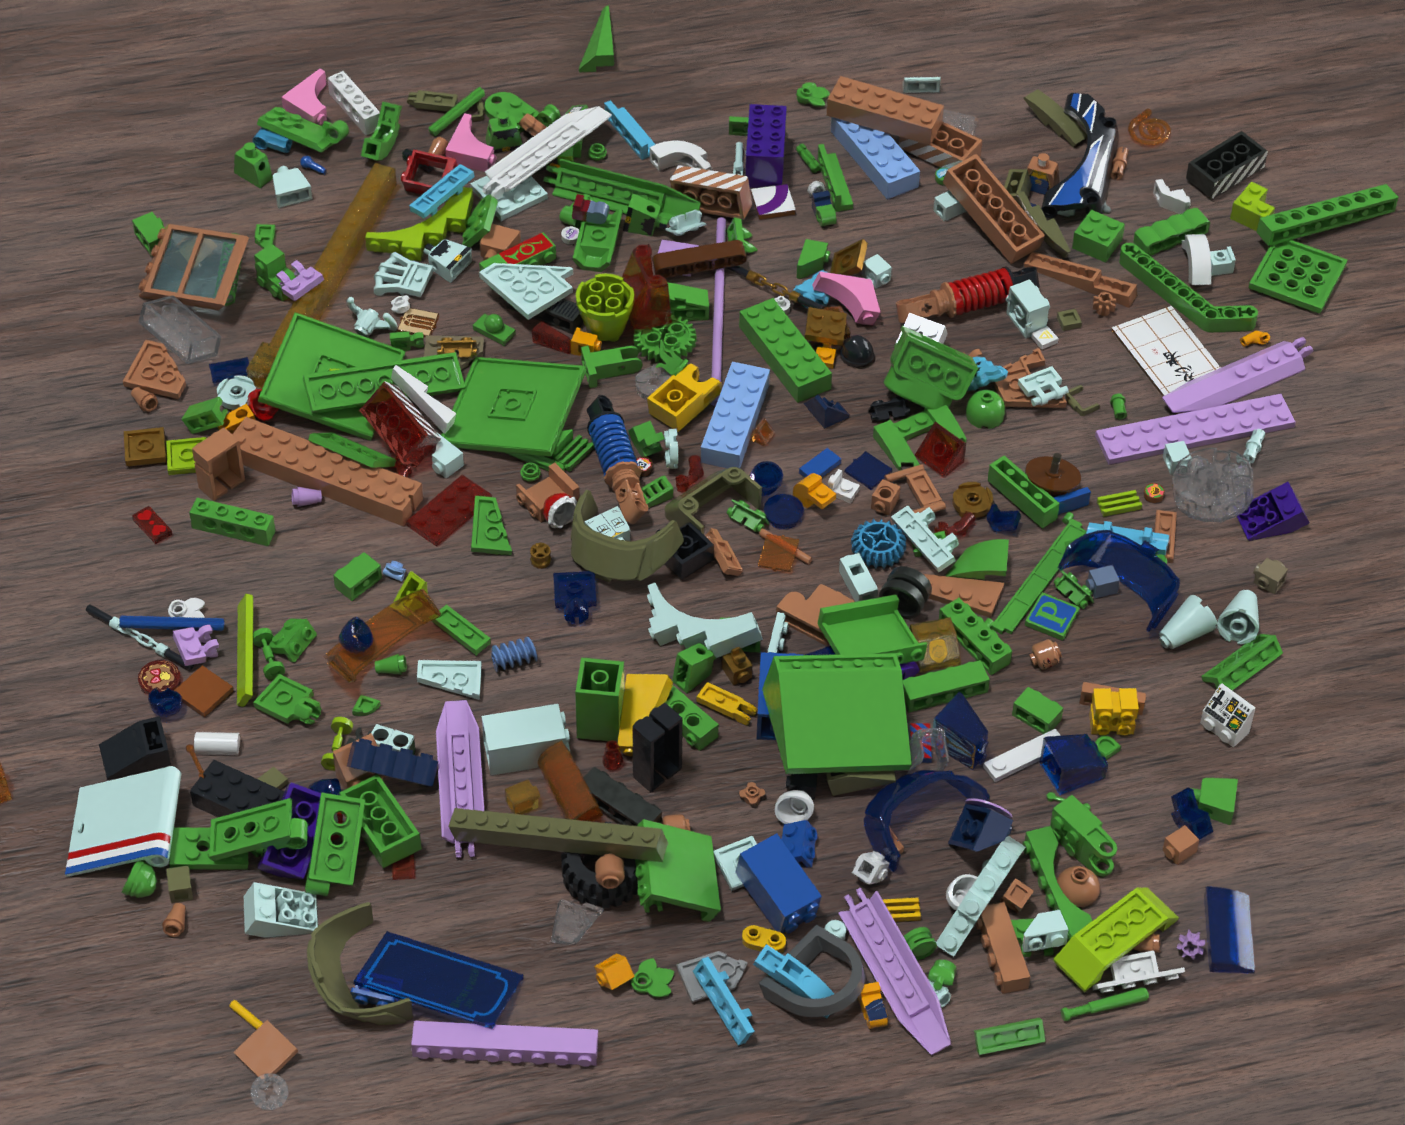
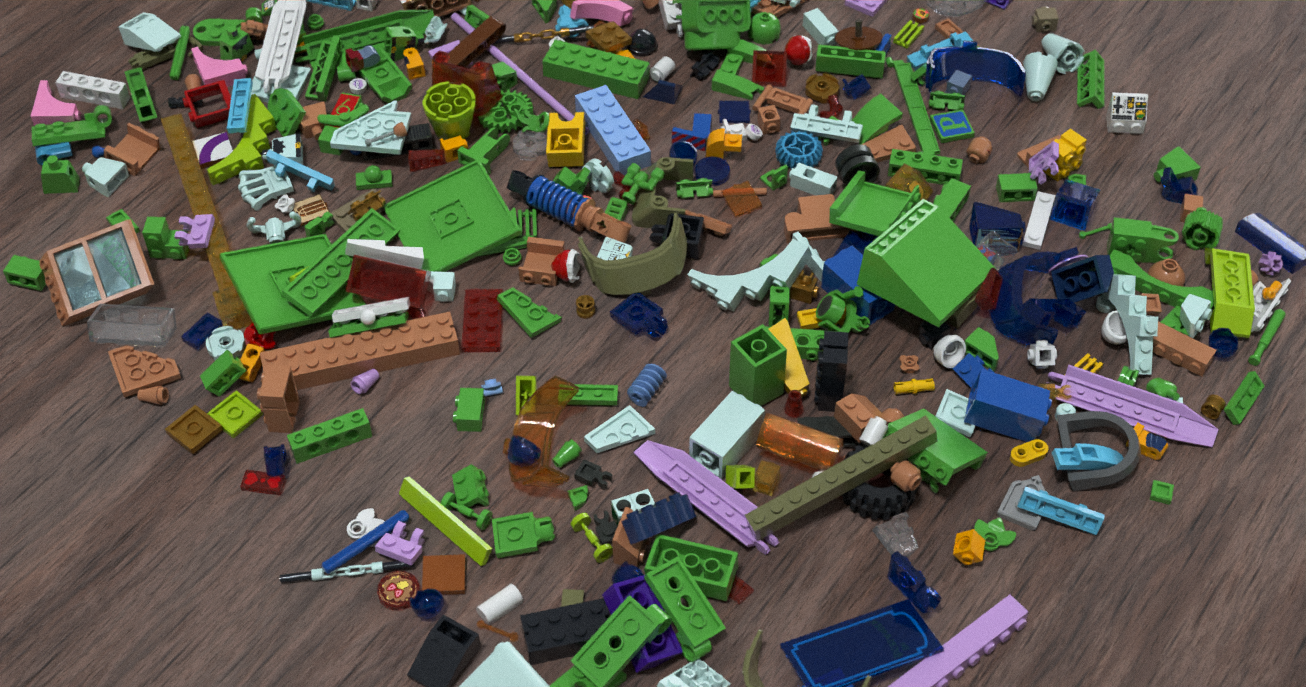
camera: 40 degrees left, 0 degrees up
(174, 512) = (275, 460): none -> clear blue piece
(332, 179) = (134, 149): none -> nougat panel
(351, 436) = (367, 313): none -> white plate
(392, 694) = (591, 473): none -> pearl dark grey plate
(394, 217) = (212, 149): none -> tile
(427, 268) = (285, 164): none -> medium azure hinge
(445, 76) = (148, 32): none -> light aqua slope
(497, 779) = (740, 476): none -> lime brick
(517, 257) = (344, 118): none -> bright green piece
(530, 976) = (912, 583): none -> clear blue plate
(542, 296) = (399, 130): none -> hinge
(553, 202) = (327, 72): none -> bright green fence
(626, 815) = (874, 431): none -> white brick
(639, 237) = (413, 63): none -> light orange leg
(642, 799) = (855, 412): none -> nougat slope
(696, 476) = (639, 179): none -> bright green piece
(729, 696) = (832, 308): none -> bright green piece
(733, 815) = (914, 386): none -> yellow pin
(792, 465) = (697, 139): none -> blue tile
(829, 825) = (983, 345): none -> bright green slope
(830, 555) = (779, 177): none -> bright green bracket
(837, 901) = (1055, 391): none -> clear yellow piece
(837, 1055) = (1161, 492): none -> bright green tile
(844, 388) = (662, 68): none -> white brick
(859, 499) = (753, 132): none -> white tile
(874, 776) = (989, 291): none -> clear red slope
(933, 845) = (1042, 311): none -> clear blue arch
(970, 1022) = (1213, 406): none -> pearl gold wheel
(982, 449) = (799, 50): none -> red hair
(984, 795) = (1066, 254): none -> clear blue tile
(1037, 439) = (819, 27): none -> light aqua brick
(1049, 977) = (1224, 342): none -> clear blue hair
(1074, 703) = (1043, 160): none -> lavender plate
(1148, 966) = (1269, 292): none -> light orange arm
(1159, 867) = (1202, 229): none -> bright green brick

